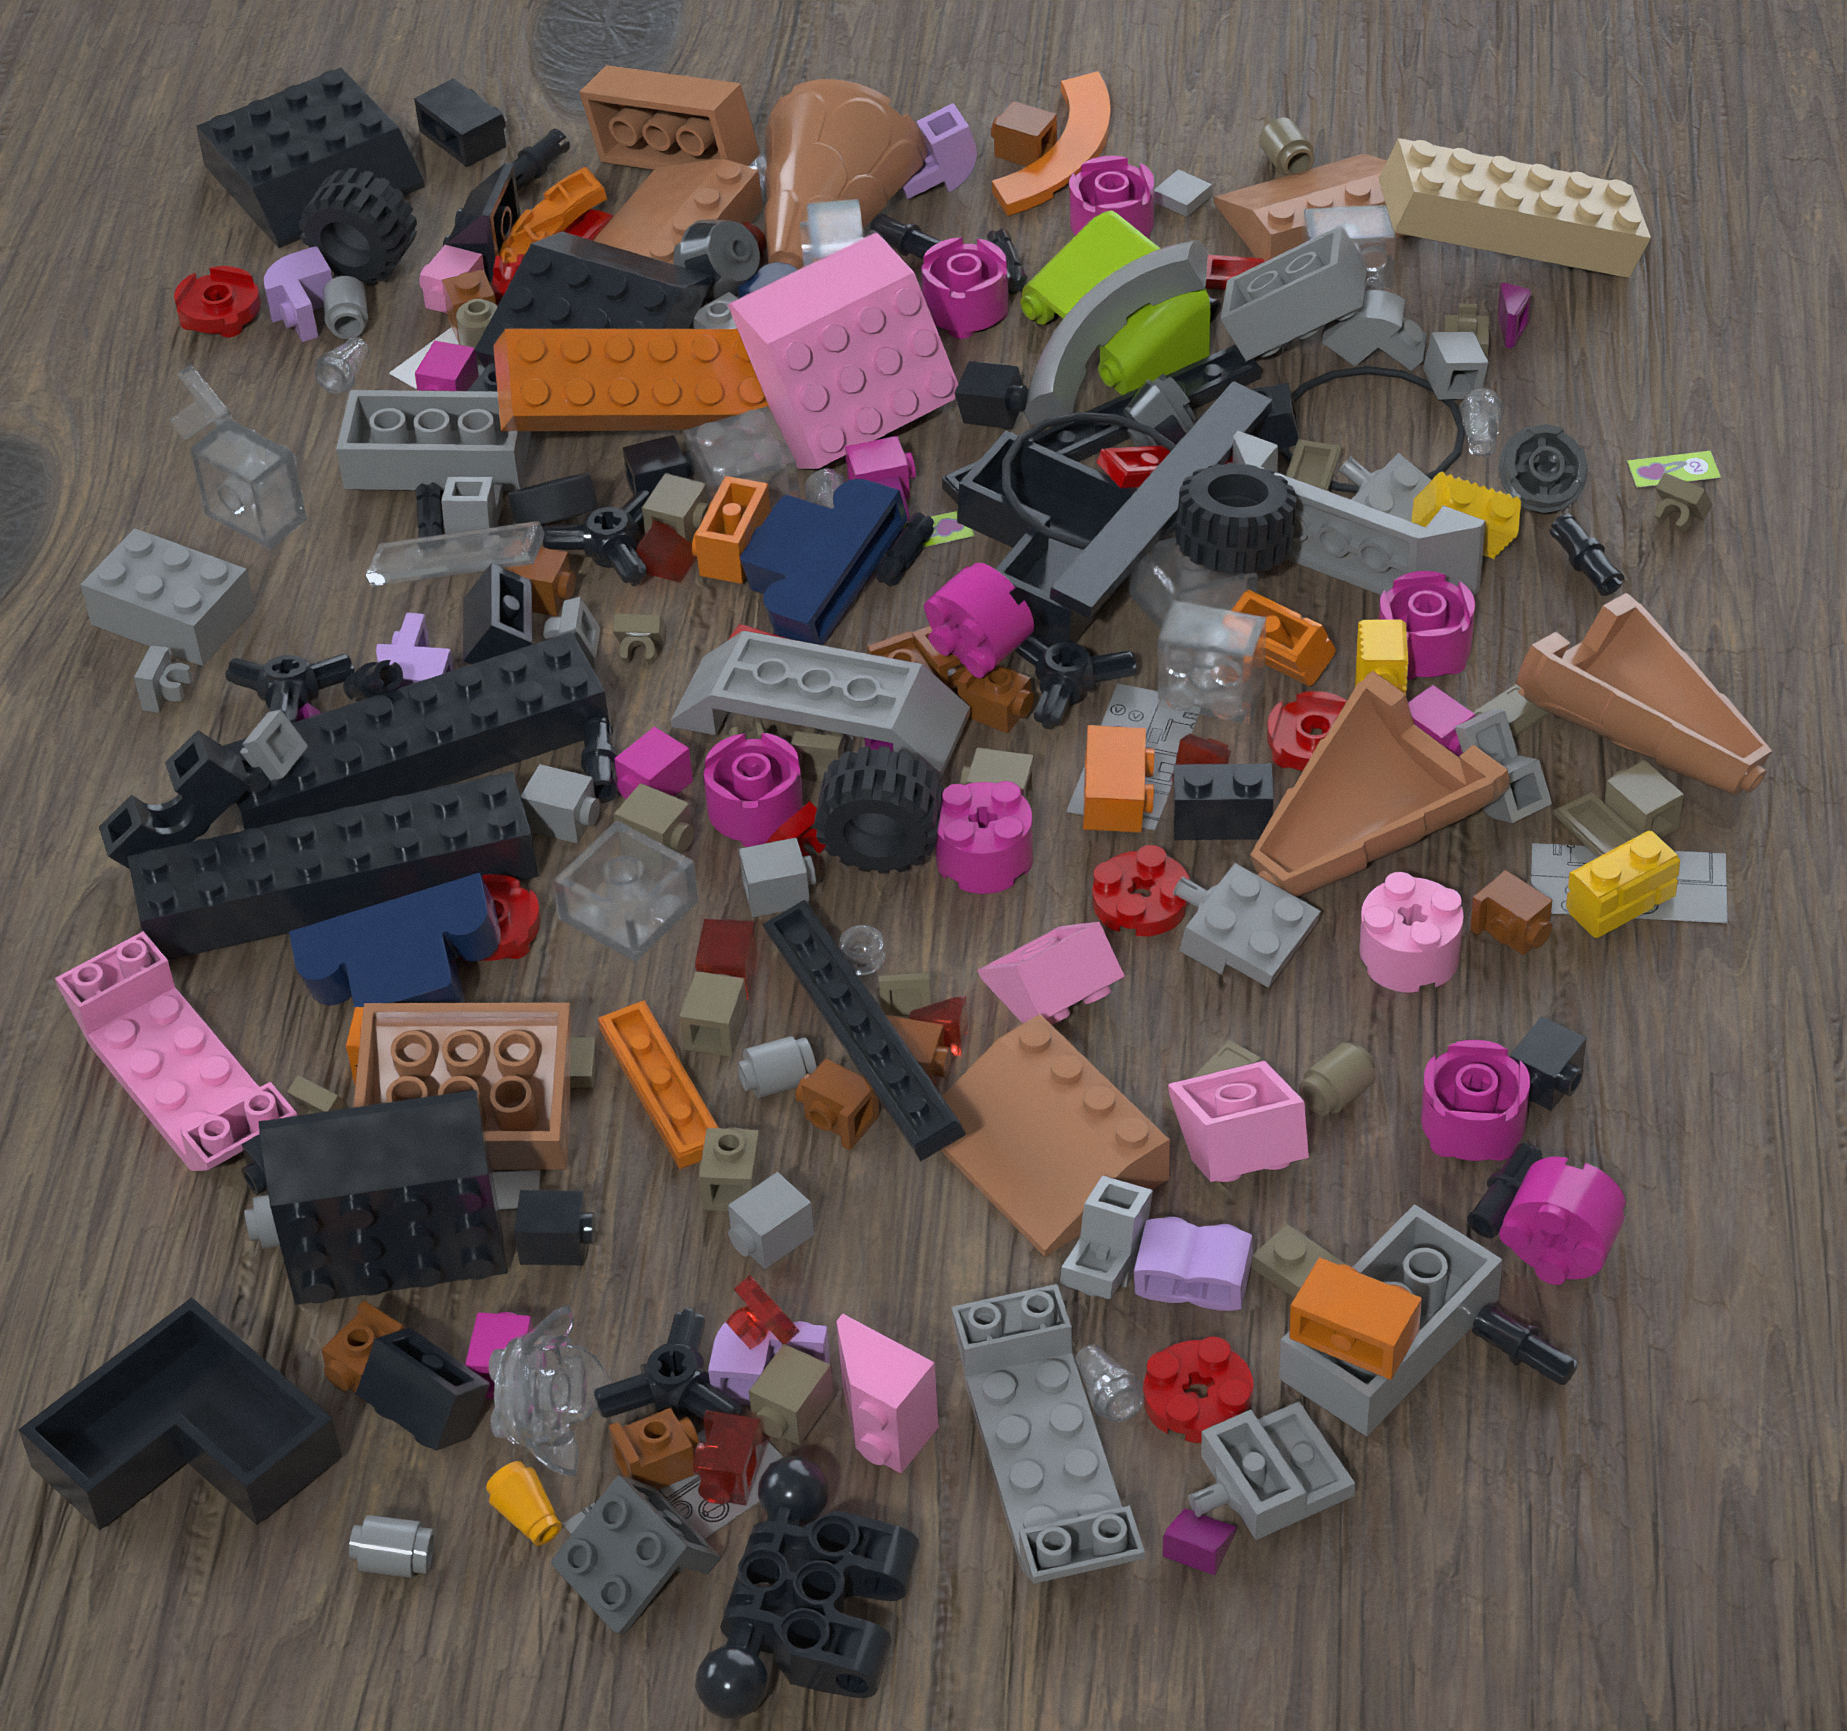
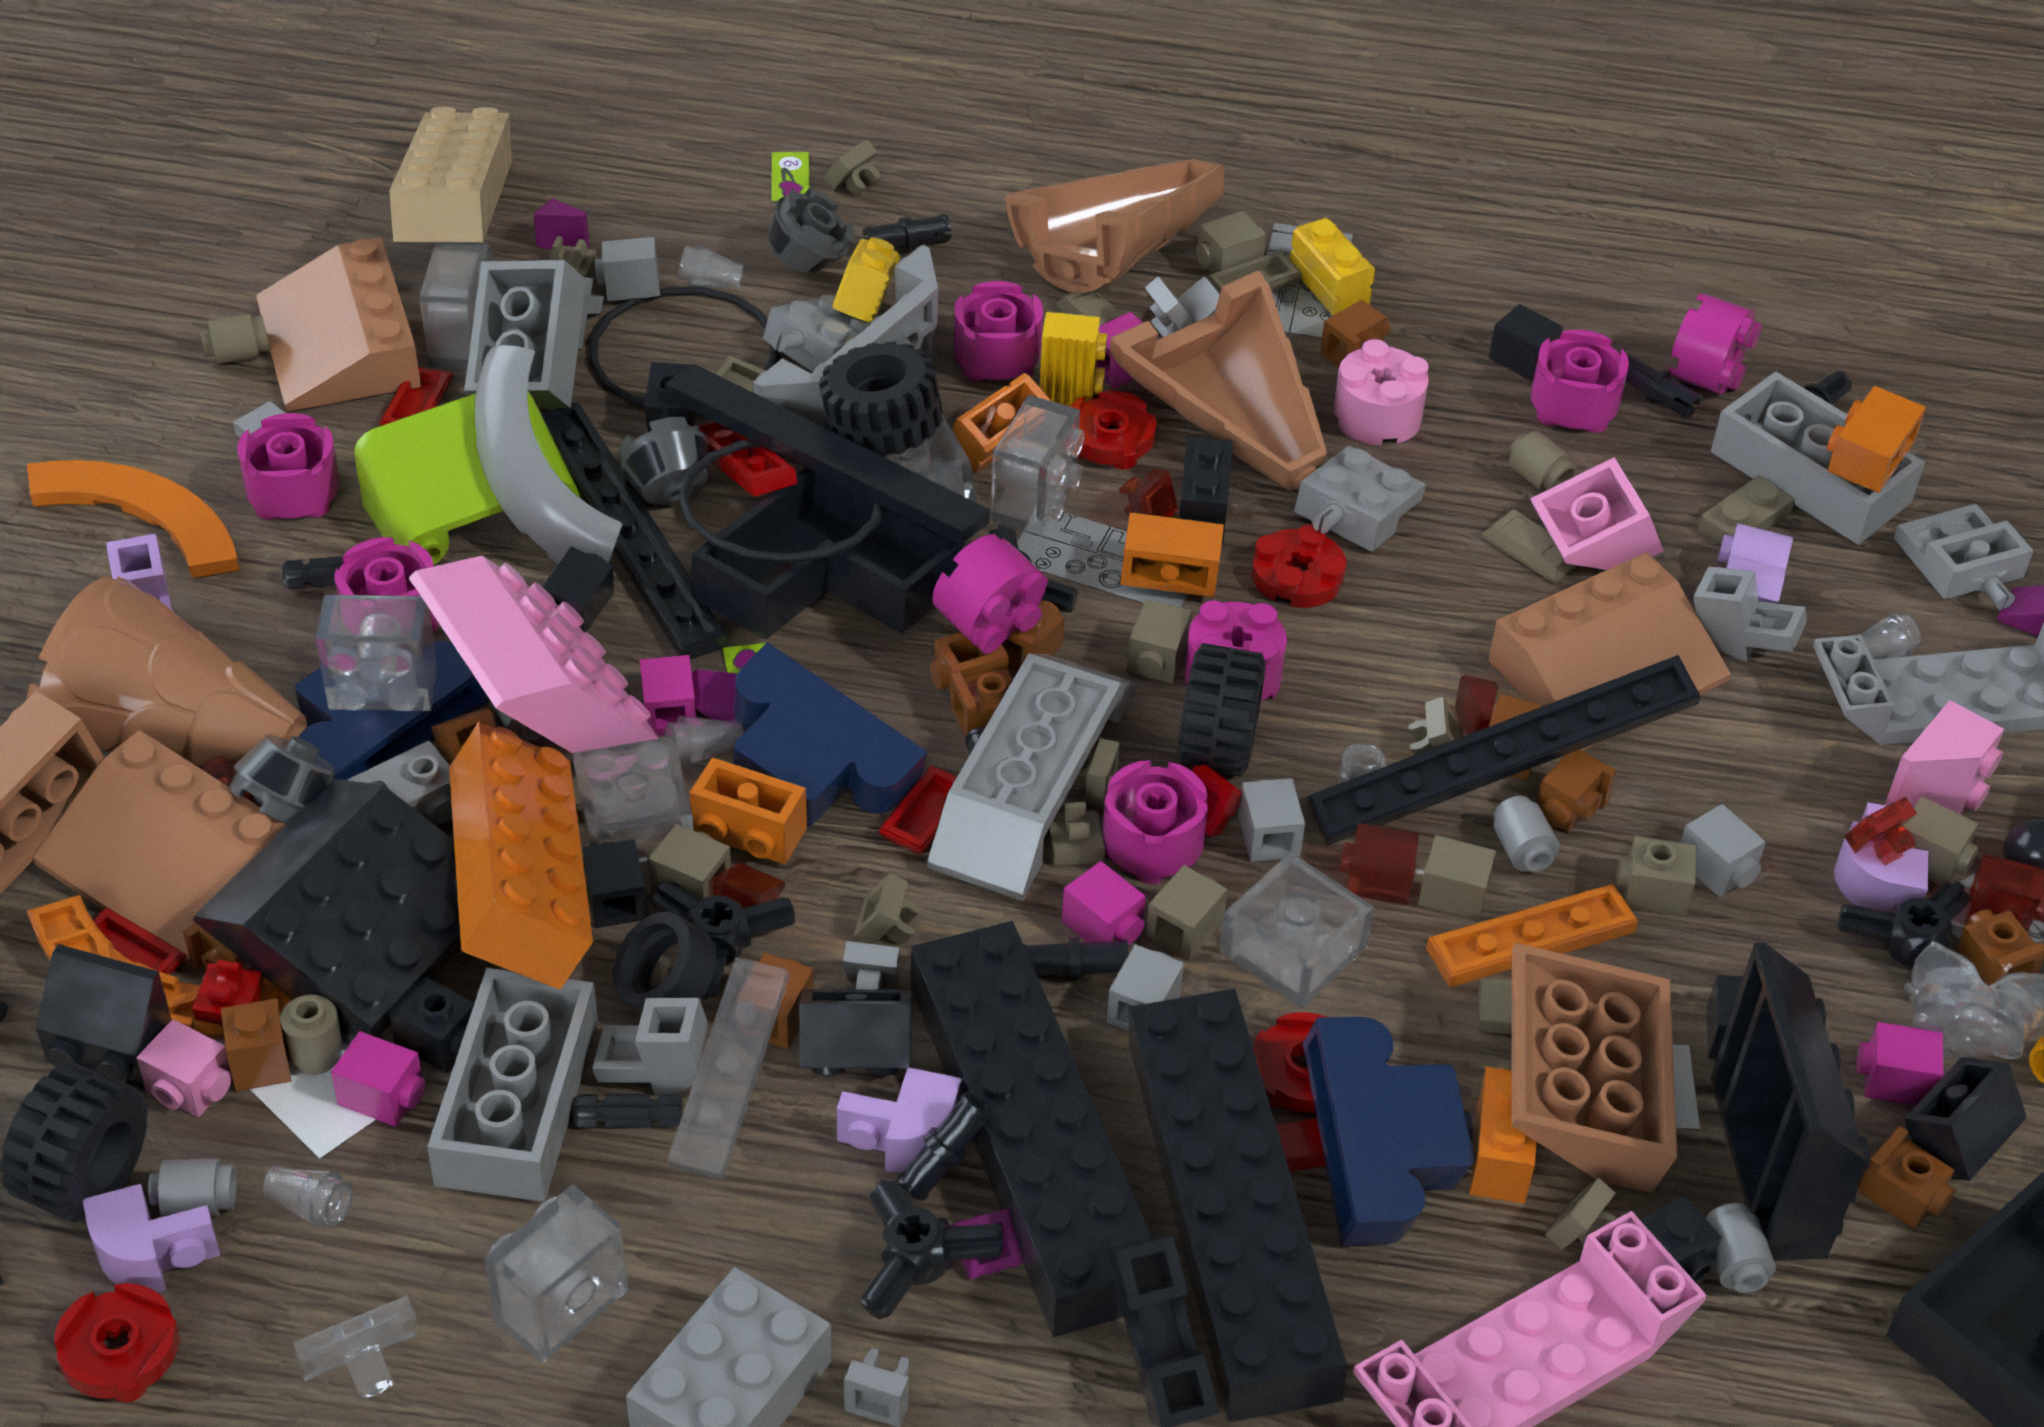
camera: 90 degrees left, 0 degrees up
(274, 745) = (1098, 1206): light grey tile -> none
(904, 237) = (267, 642): black axle -> none
(1023, 133) = (119, 518): dark orange brick -> none
(1054, 972) = (1407, 629): bright pink slope -> none
(1192, 1363) = (1888, 574): red plate -> none

